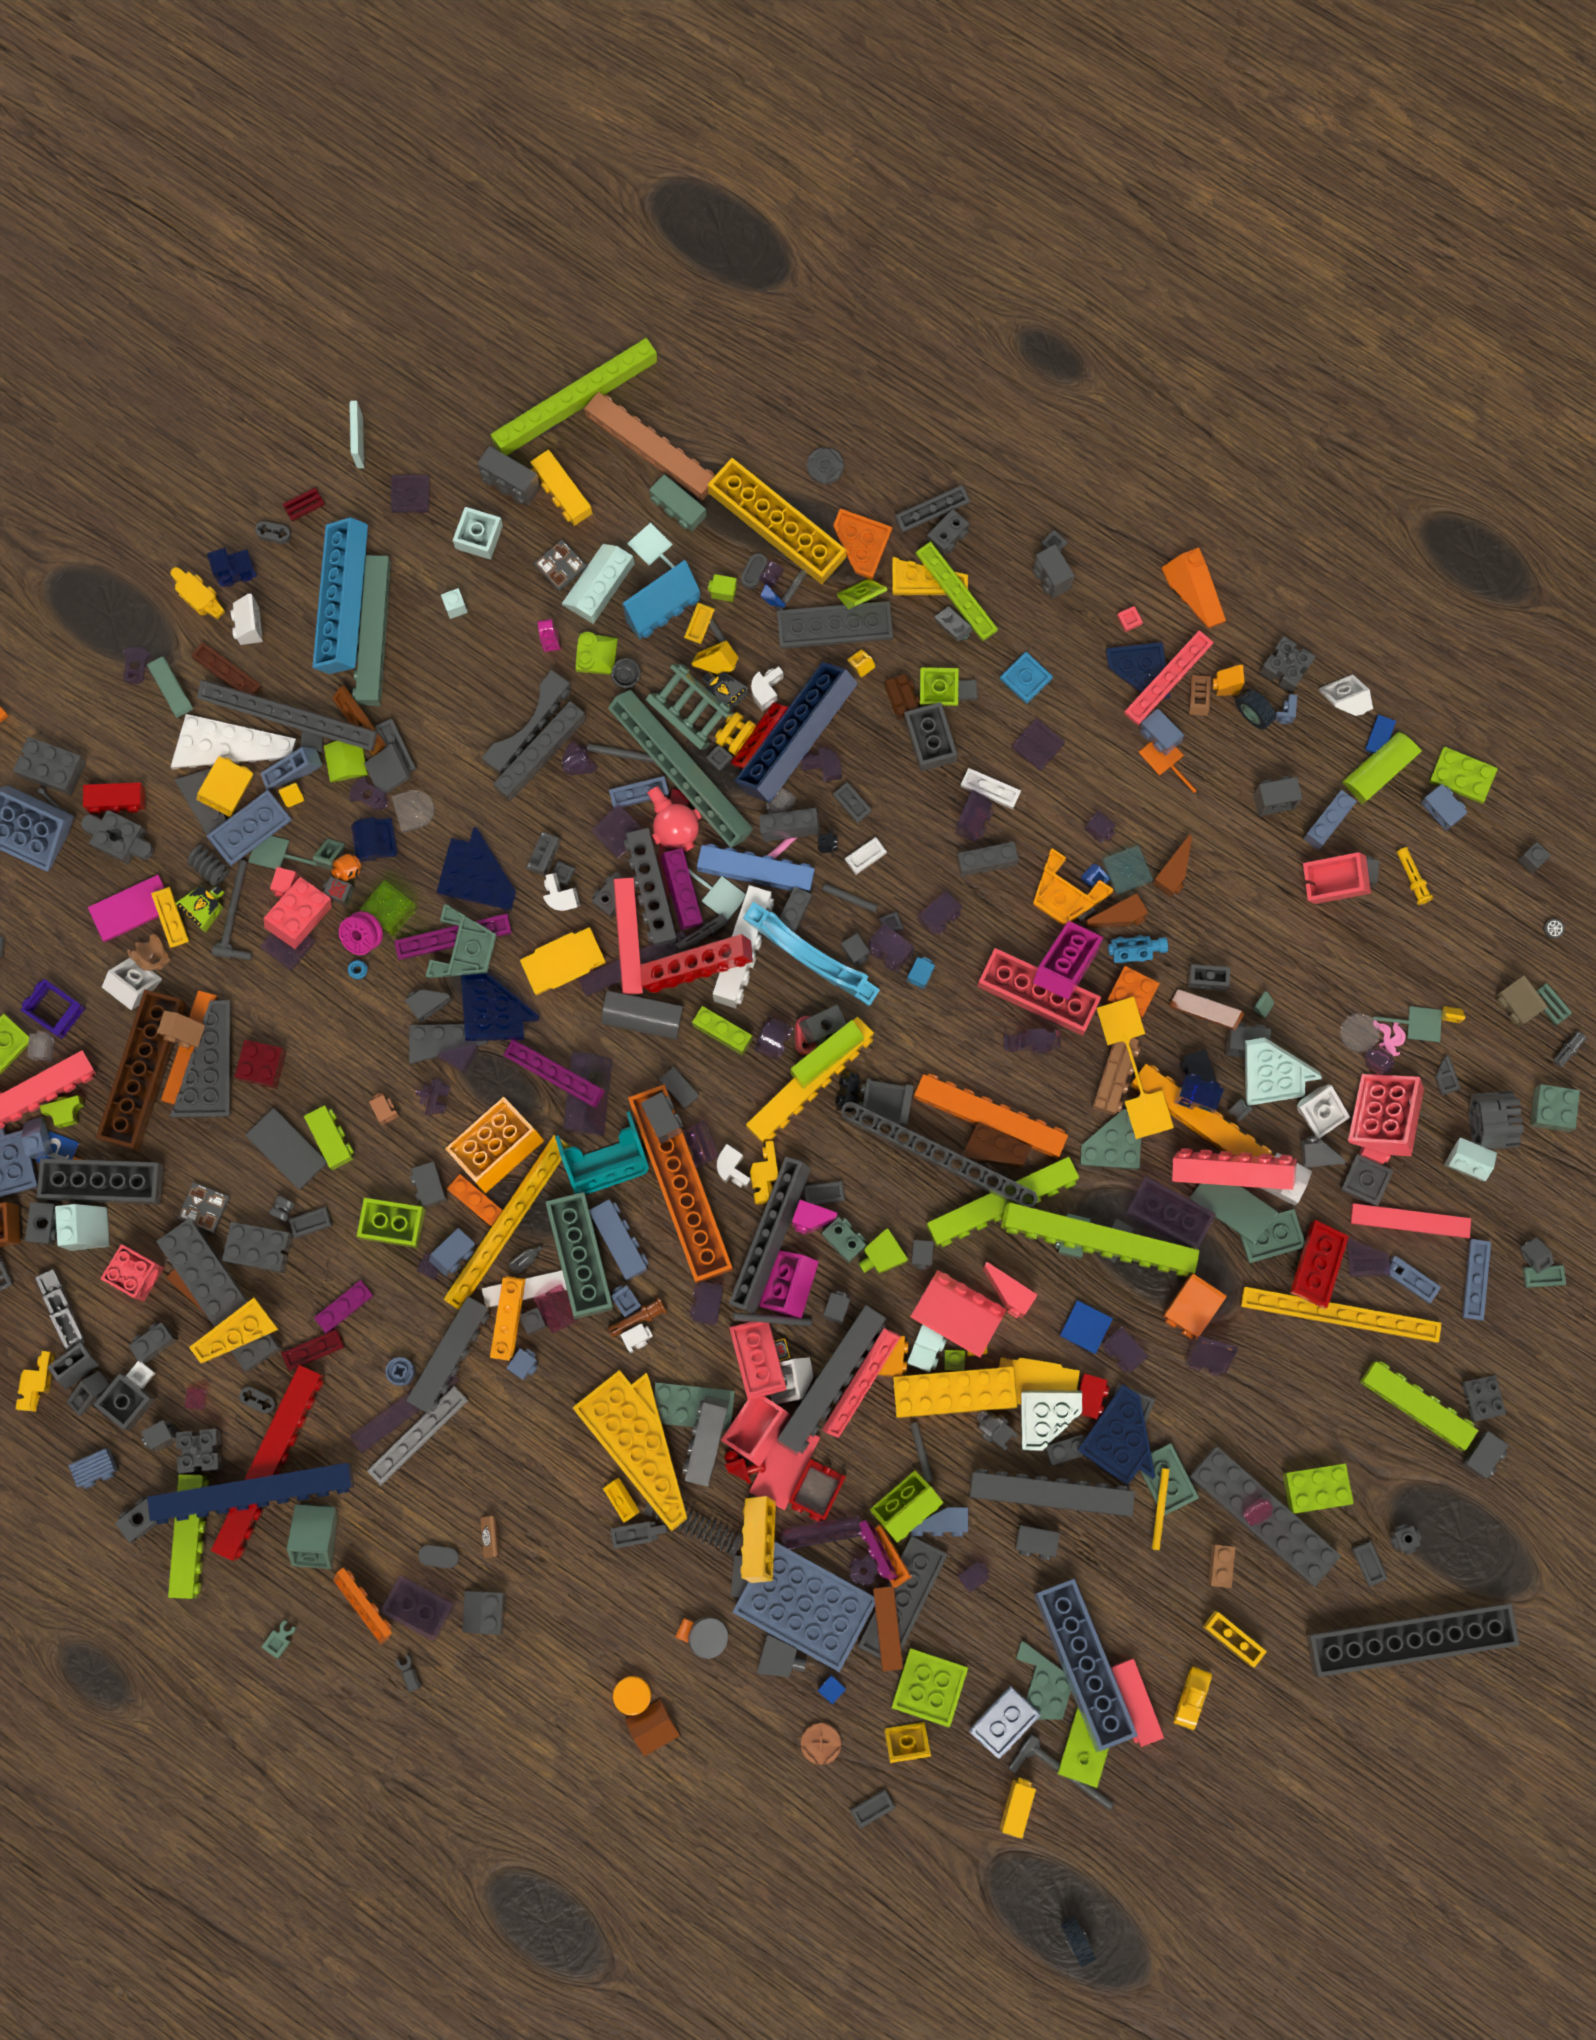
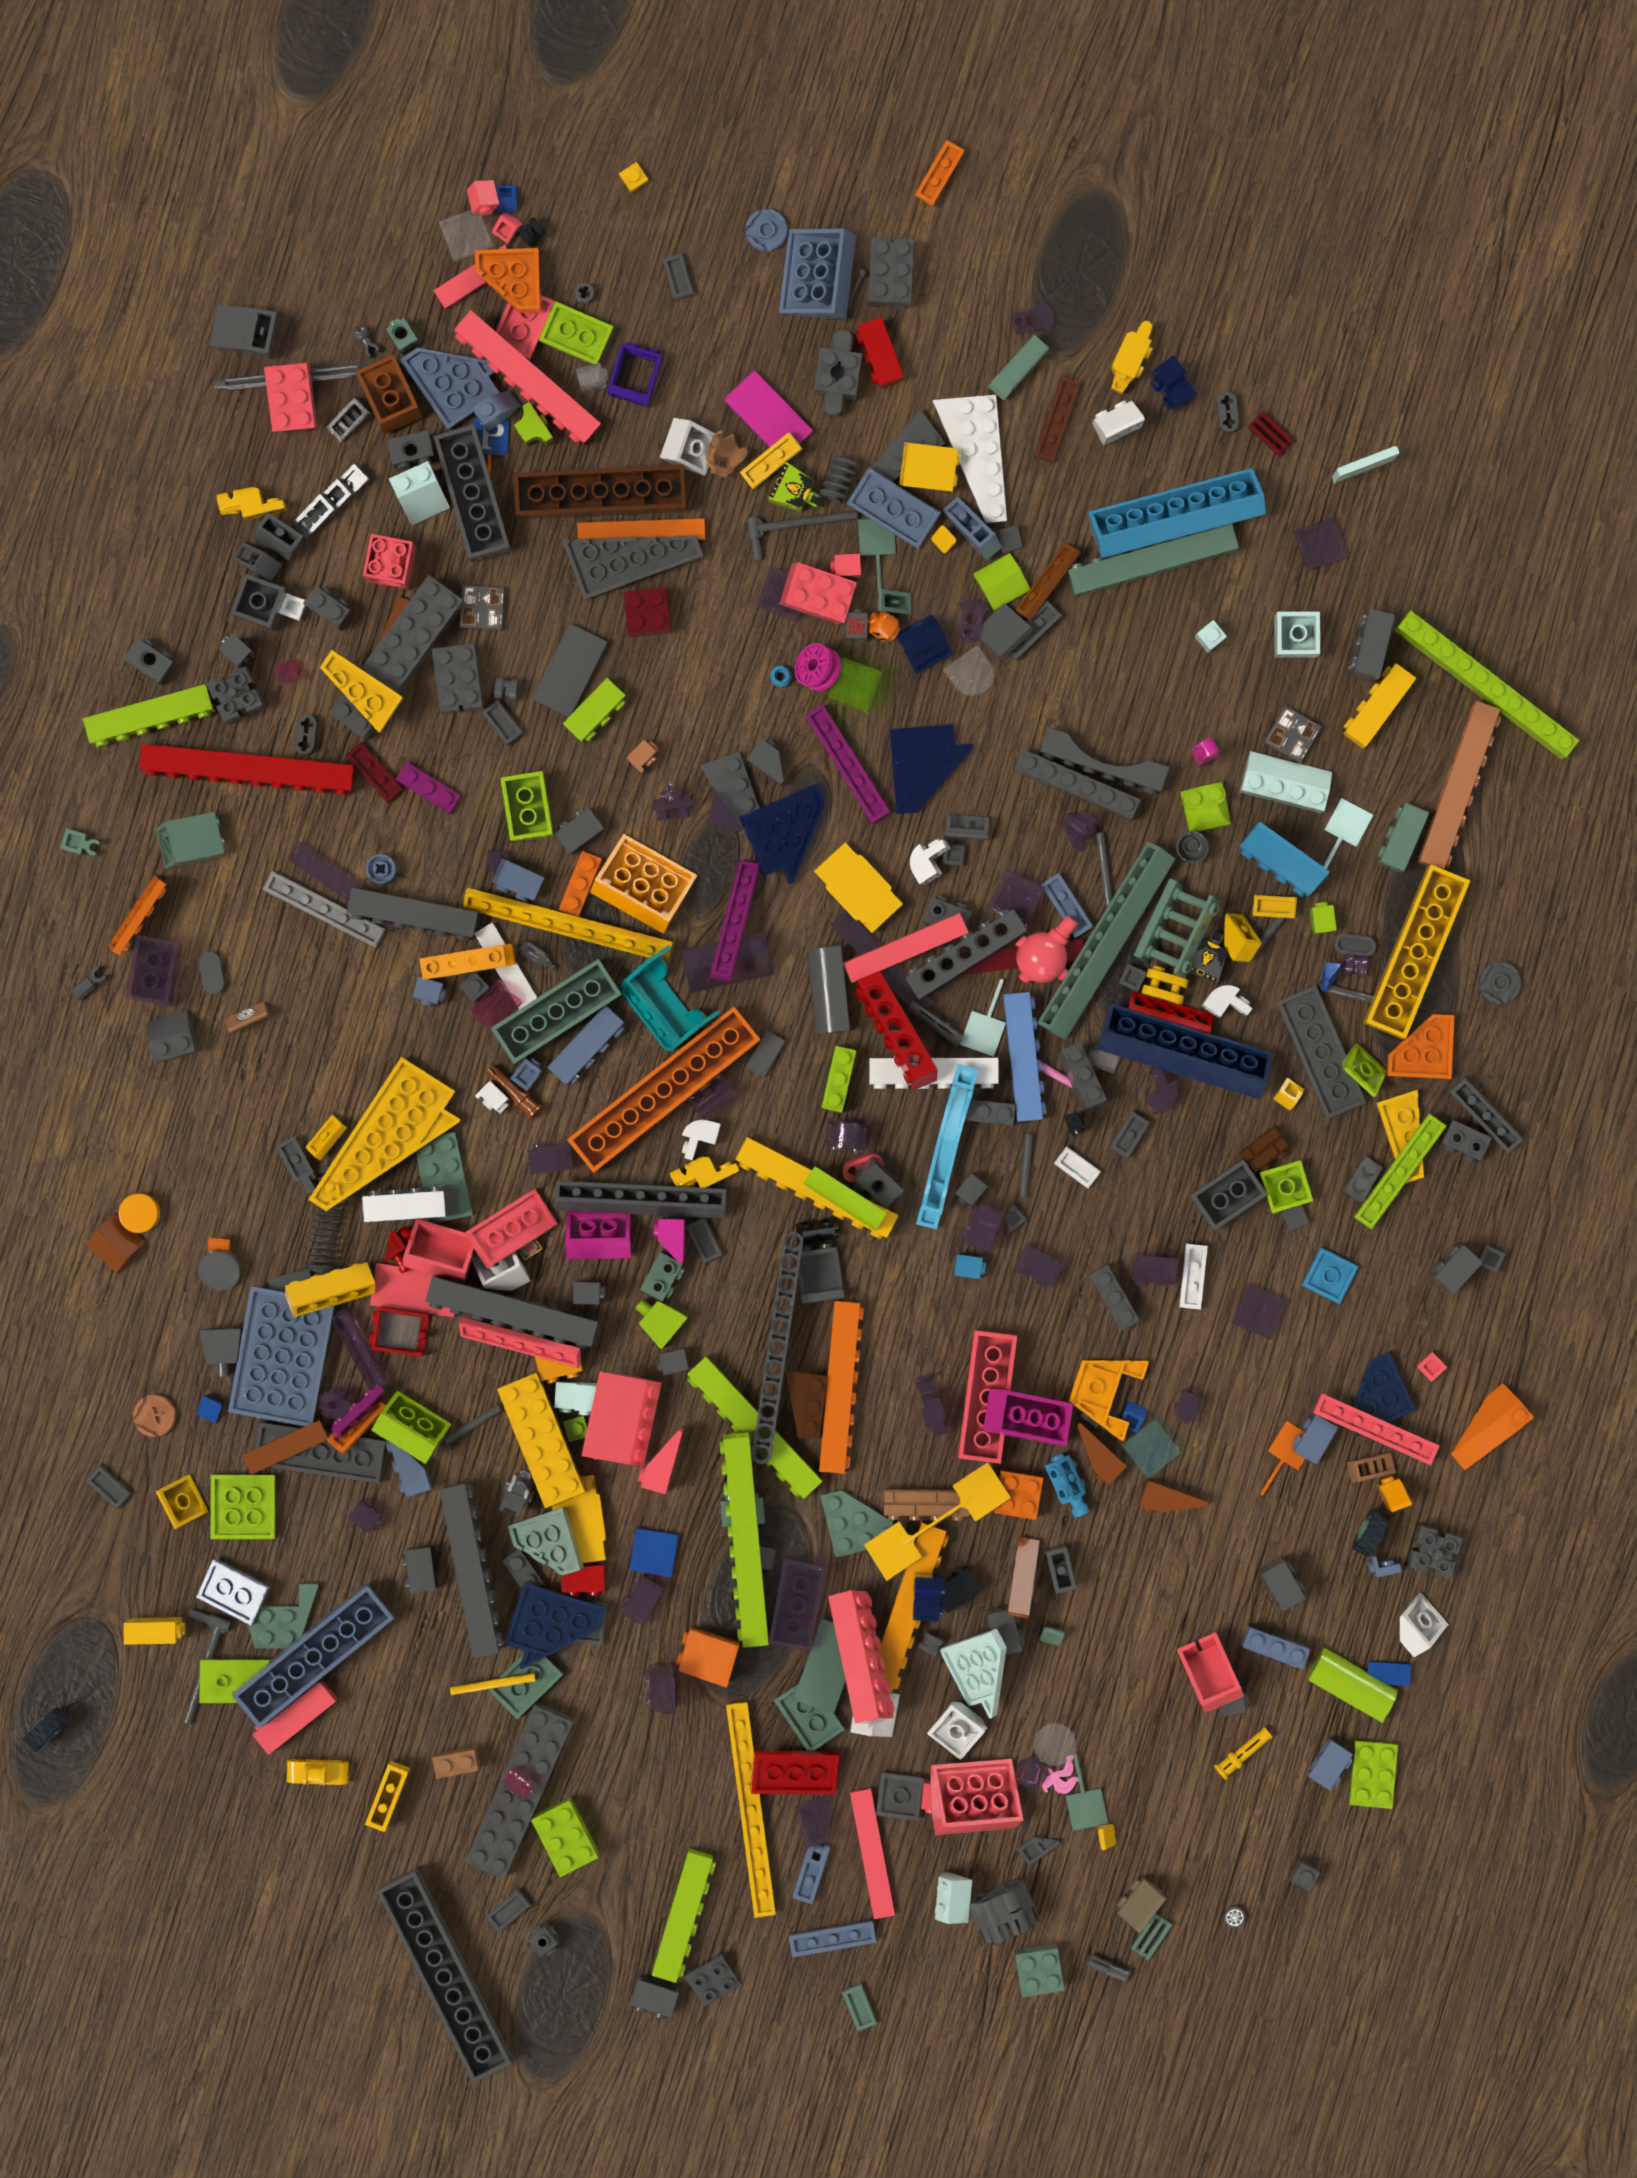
camera: 75 degrees right, 10 degrees up
(93, 1468) = (185, 595): sand blue brick -> none
(180, 1029) = (653, 518): medium nougat brick -> none
(250, 1492) = (210, 764): dark blue brick -> none
(287, 715) = (1027, 503): dark grey plate -> none
(471, 949) = (838, 789): sand green wing -> none
(660, 1115) = (721, 1050): dark grey brick -> none
(681, 889) = (974, 986): magenta brick -> none
(772, 1319) = (556, 1229): dark grey bar -> none
(1317, 1153) = (911, 1739): dark grey slope -> none
(1537, 1255) = (877, 1993): dark grey brick -> none

